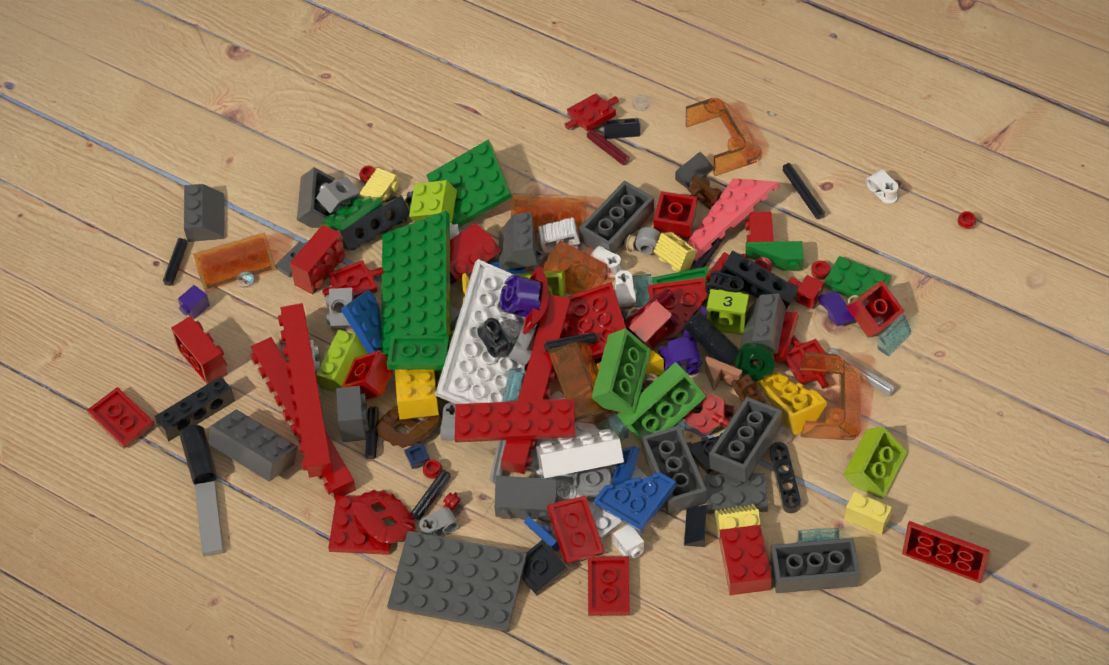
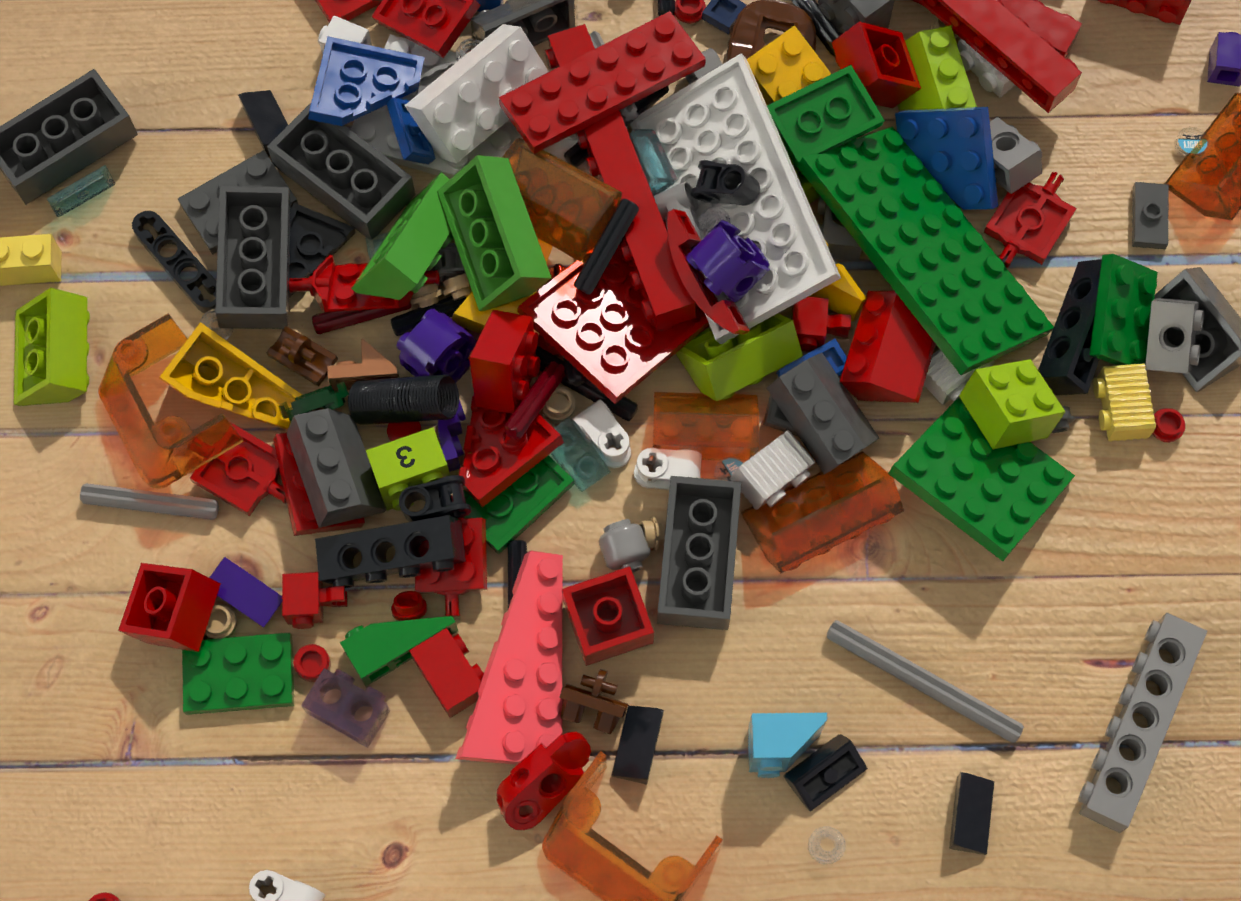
camera: 145 degrees right, 15 degrees up
(317, 259) = (1106, 205): red brick -> none
(477, 79) = (1183, 643): none -> light grey brick
(555, 137) = (925, 681): none -> light grey axle
(573, 86) = (971, 814): none -> black slope
(591, 112) = (896, 768): red plate -> none
(608, 147) = (836, 714): dark red axle -> none
(633, 134) = (780, 739): none -> medium azure slope
(675, 252) = (562, 540): light yellow brick -> none
(737, 517) = (207, 148): light yellow brick -> none
(745, 560) = (166, 100): red brick -> none
(746, 169) = (542, 780): none -> red piece
(803, 191) = (425, 812): black axle -> none
(815, 240) = (341, 713): none -> brick
(894, 336) = (121, 592): clear light blue slope -> none

